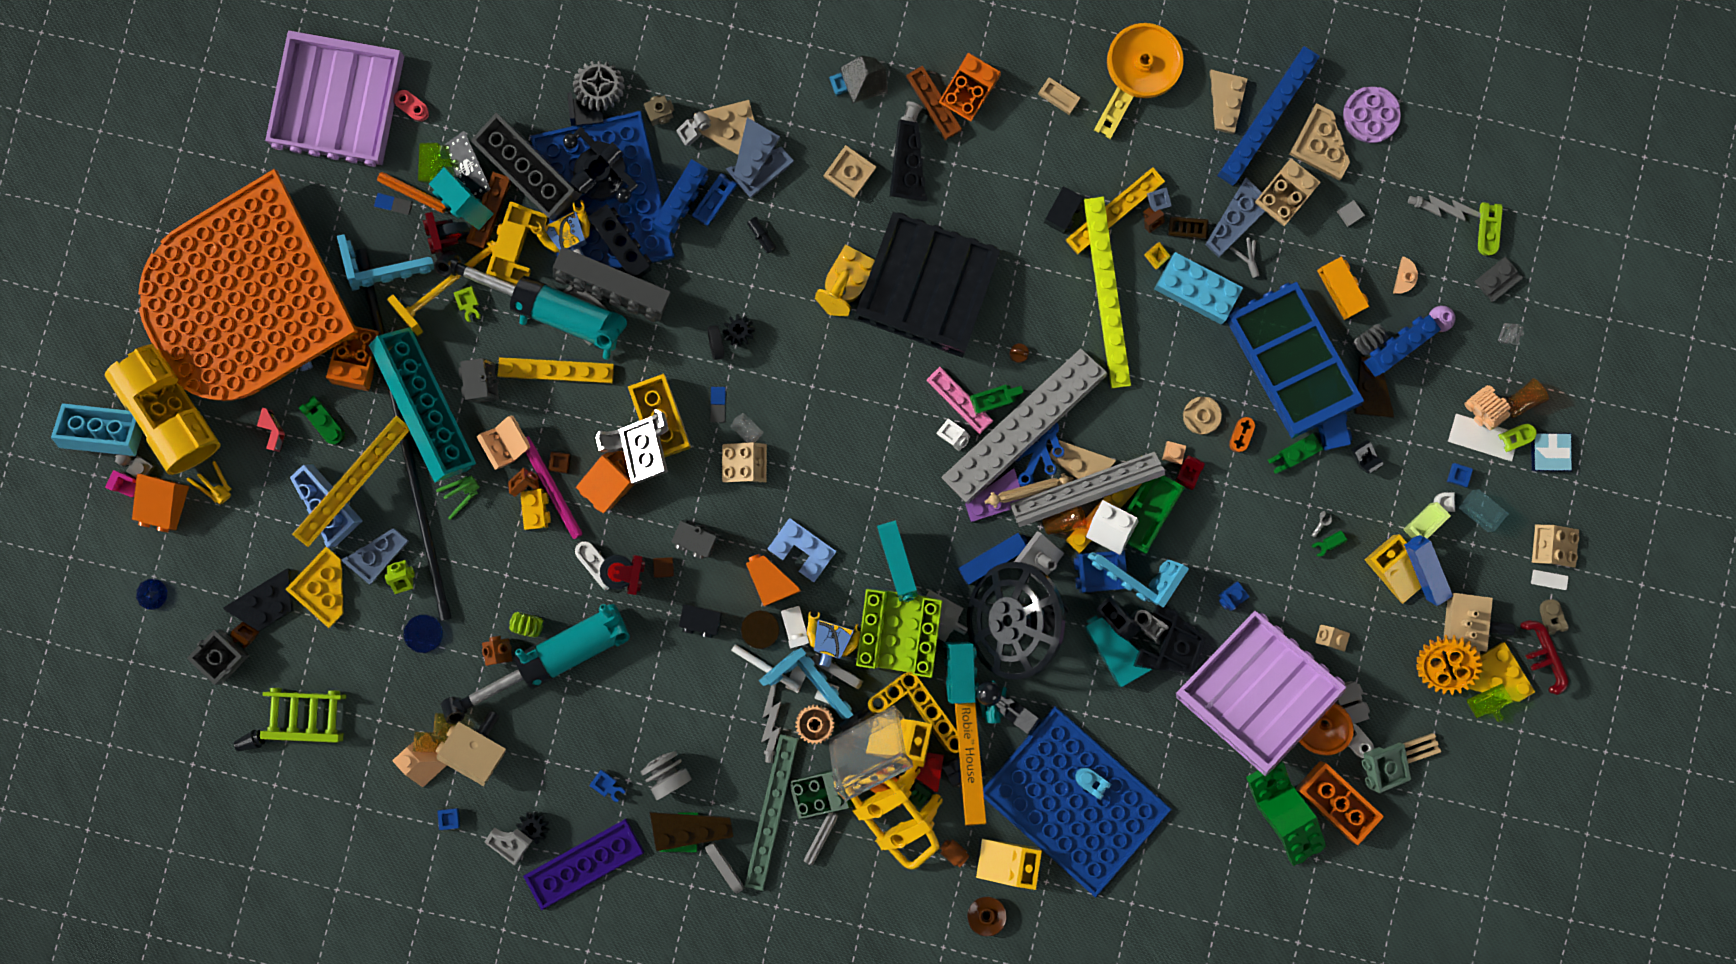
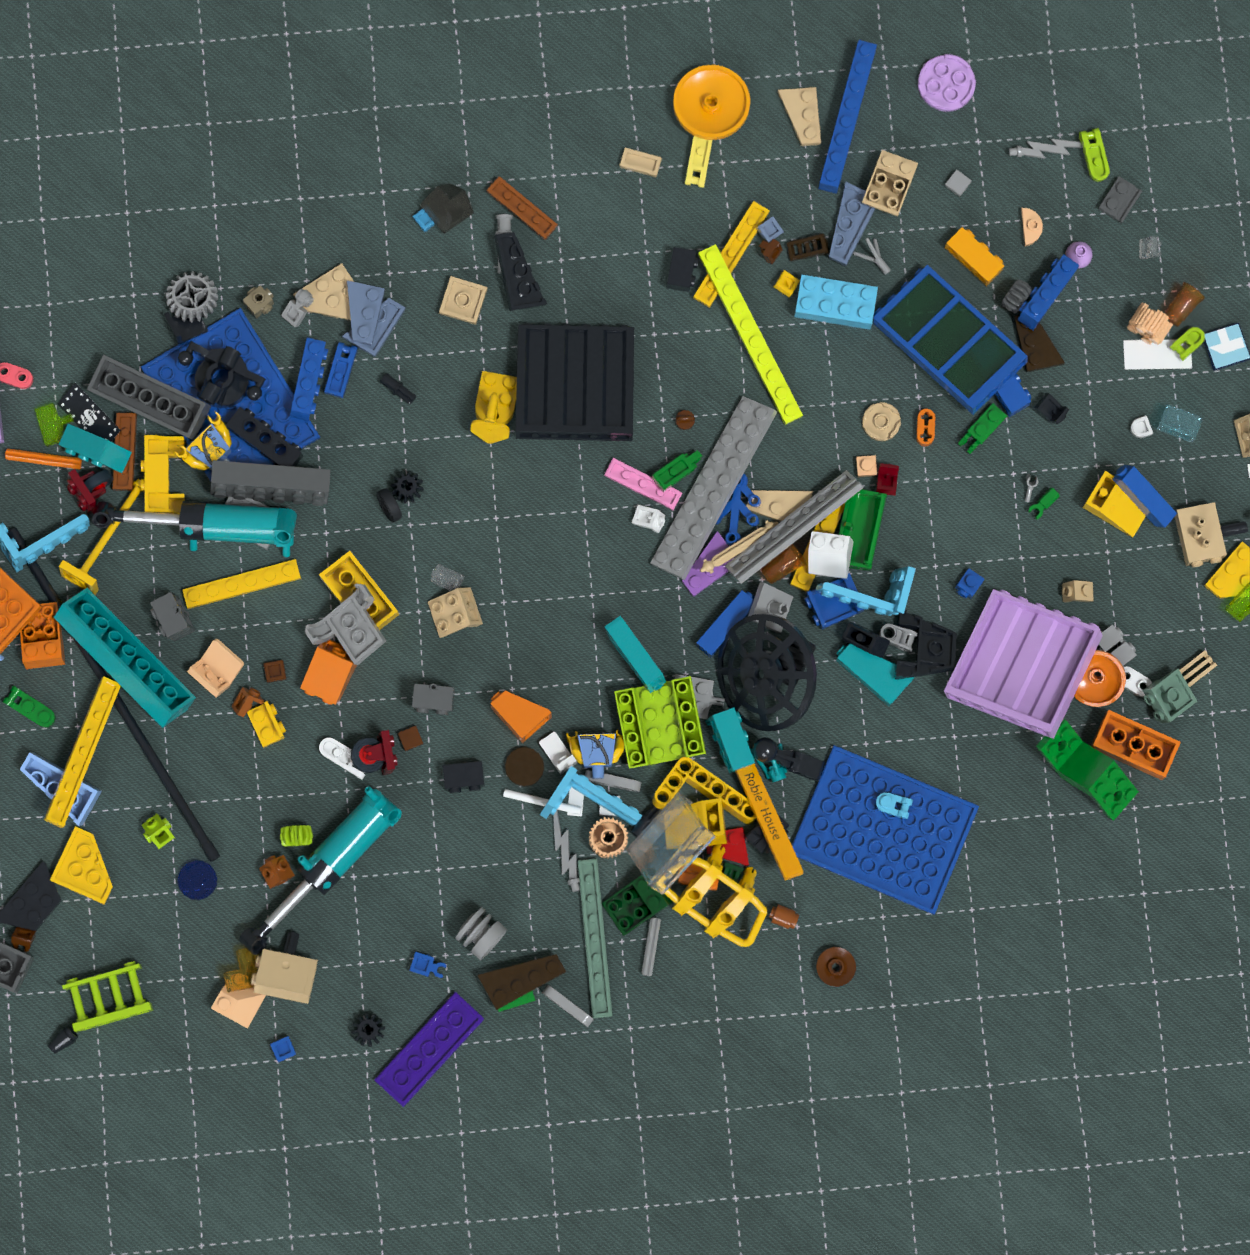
camera: 20 degrees left, 5 degrees down
(374, 558) = (127, 820): sand blue wing -> none
(392, 203) = (27, 476): sticker -> none
(467, 301) = (132, 545): lime plate -> none
(468, 485) = (192, 722): bright green plant -> none
(509, 845) = (351, 1053): light grey tile -> none
(553, 491) = (282, 704): dark pink axle -> none
(717, 411) = (410, 565): sticker -> none
(796, 535) = (530, 665): light blue plate -> none
(970, 87) = (552, 182): orange slope -> none
(1009, 863) = (840, 909): yellow slope -> none
(1321, 143) = (908, 126): tan plate -> none
(1427, 521) = (1130, 449): yellowish green panel -> none
(1459, 475) = (1146, 397): blue plate -> none
(1466, 659) = (1209, 568): light orange gear -> none

